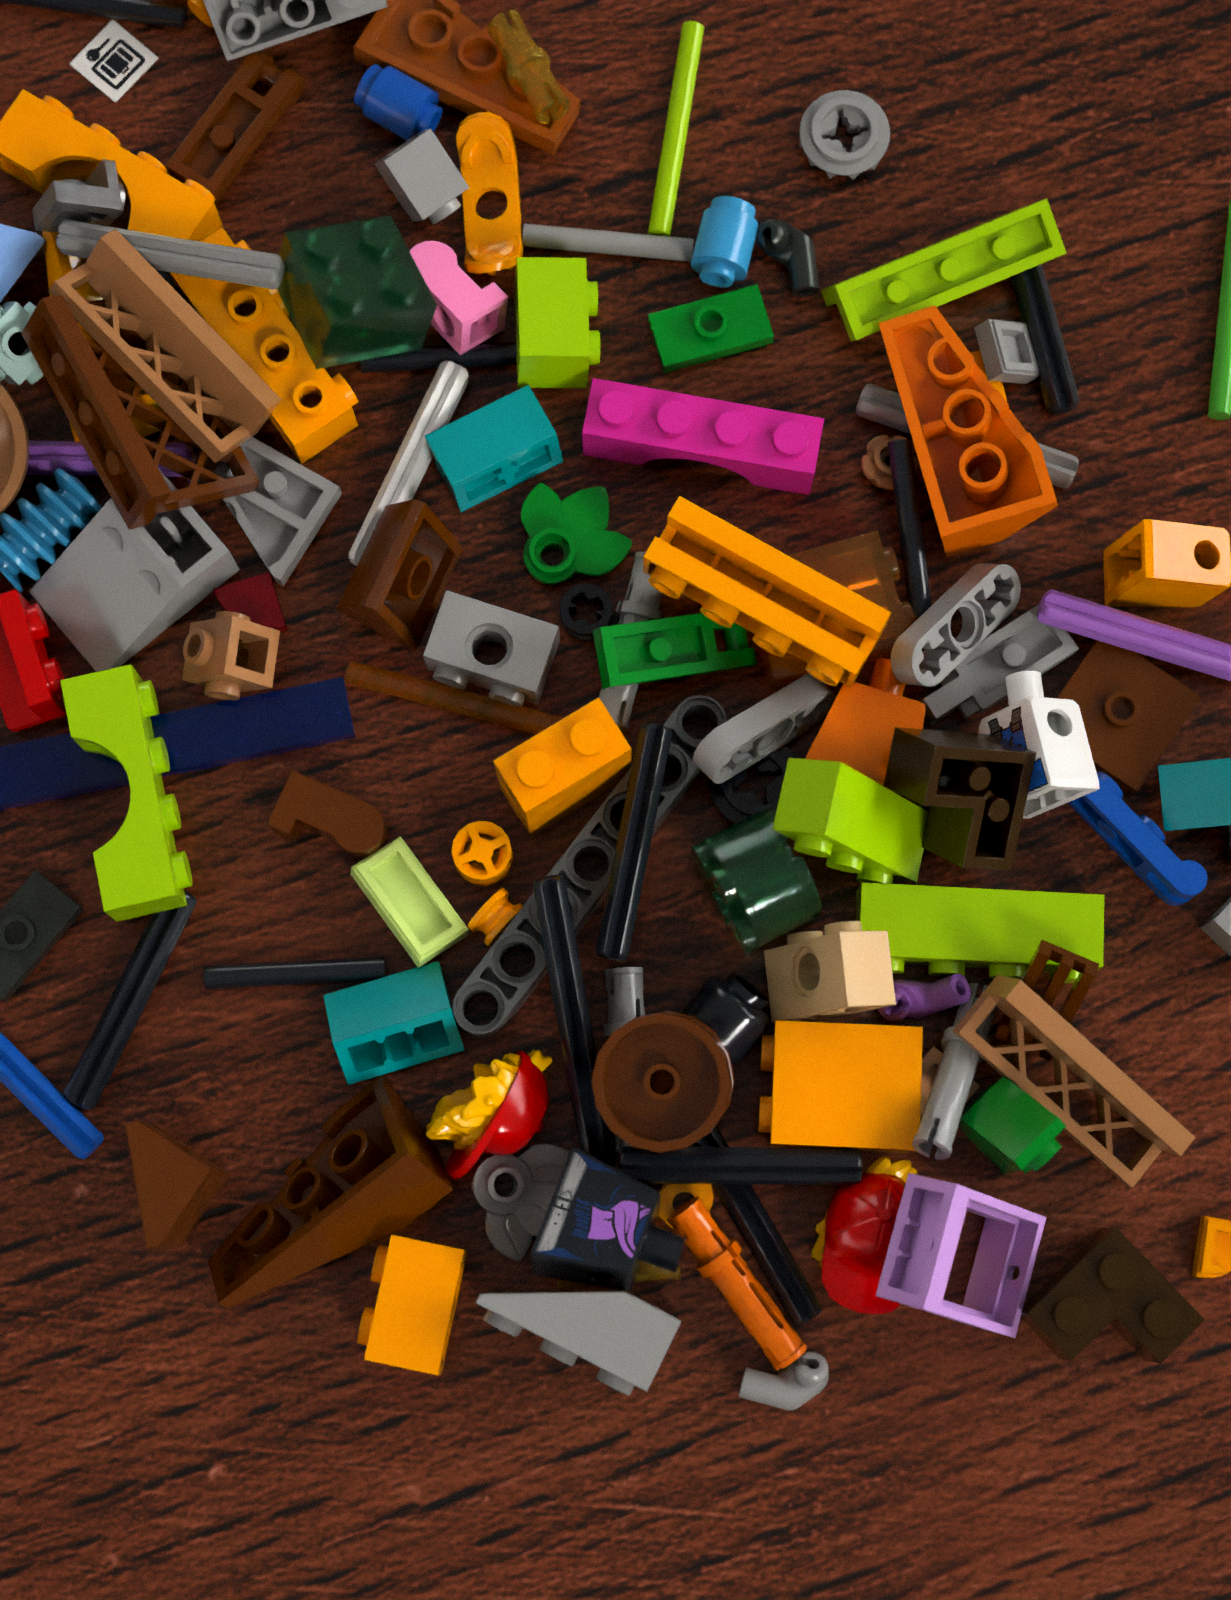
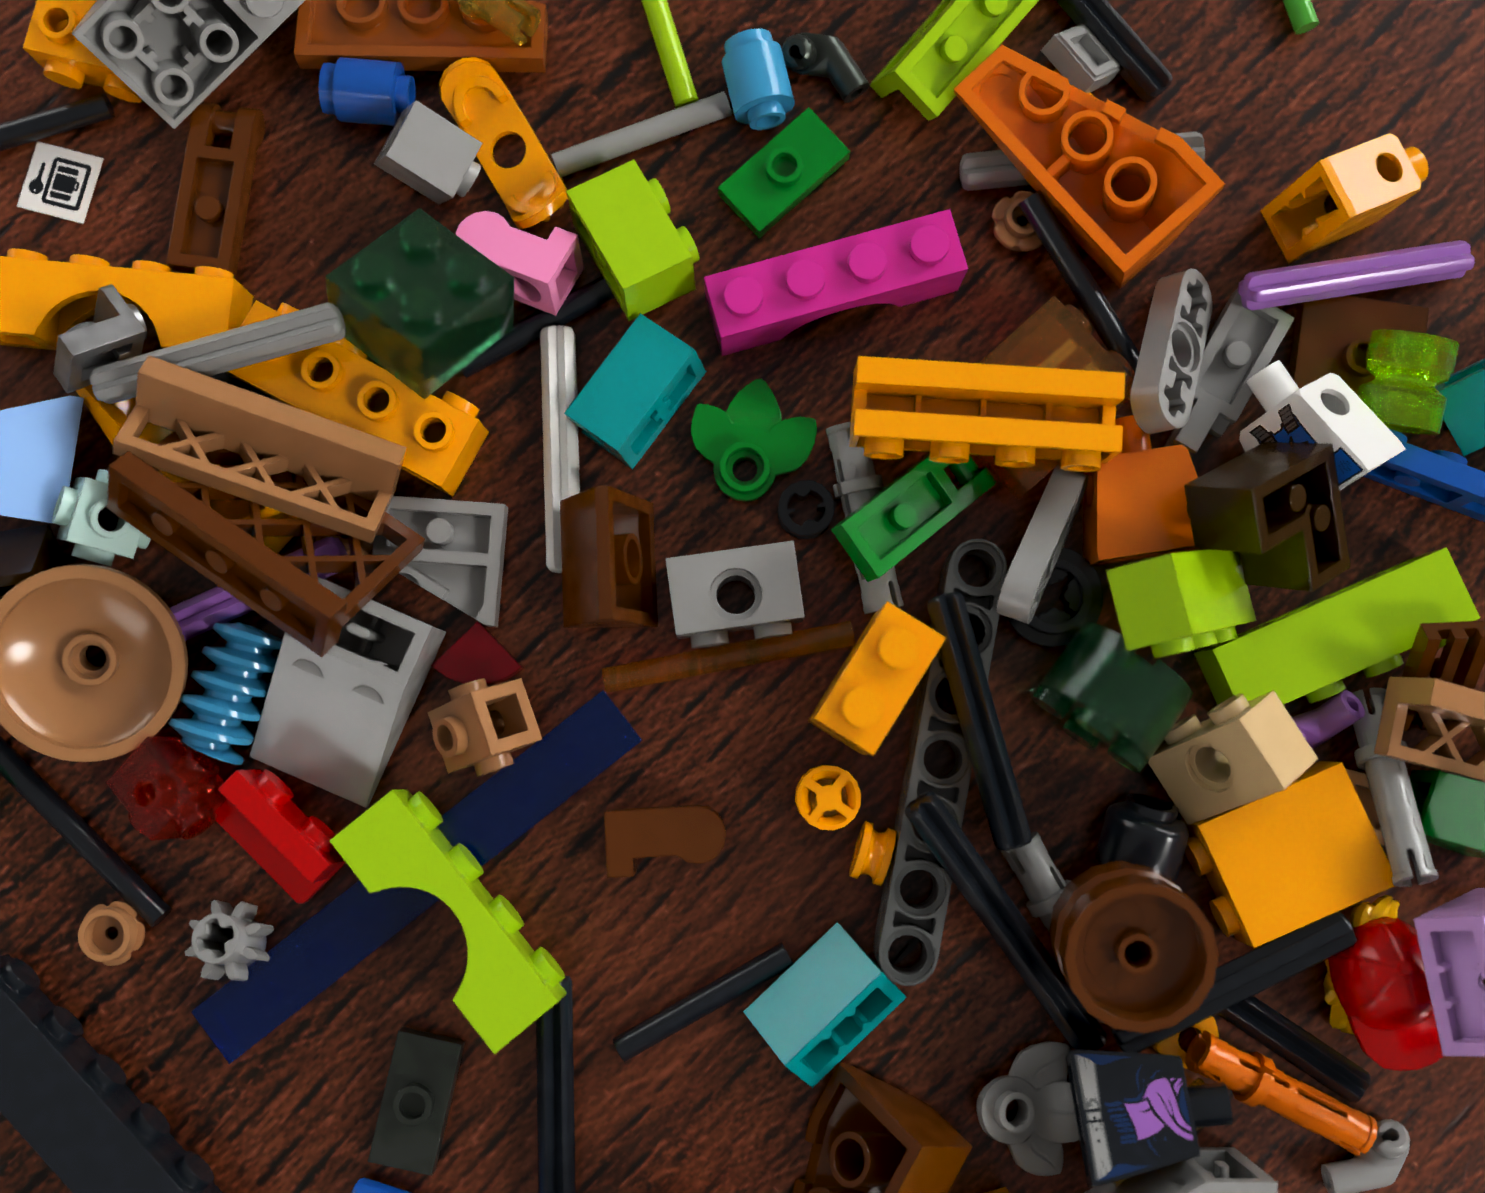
camera: 30 degrees left, 5 degrees up
(409, 901) = (780, 879): yellowish green tile -> none
(495, 1112) = (966, 1049): hair -> none
(1137, 739) = (1406, 375): none -> clear neon green wheel

